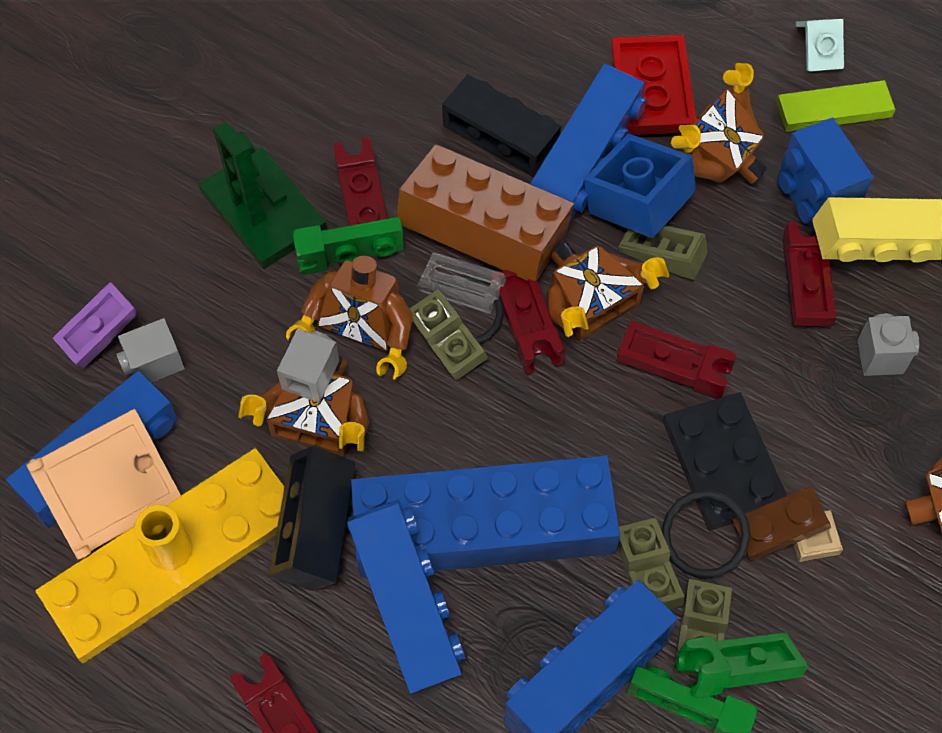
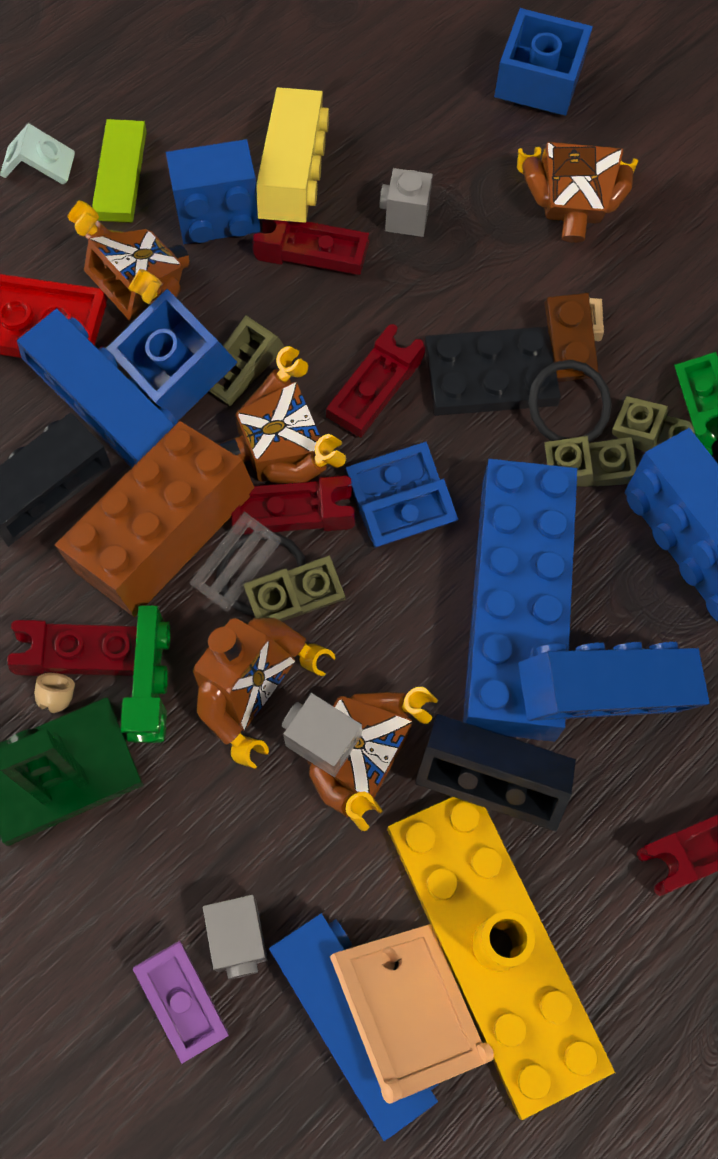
camera: 80 degrees left, 5 degrees up
(323, 184) = (54, 691): none -> tan hinge
(566, 404) = (400, 494): none -> blue slope

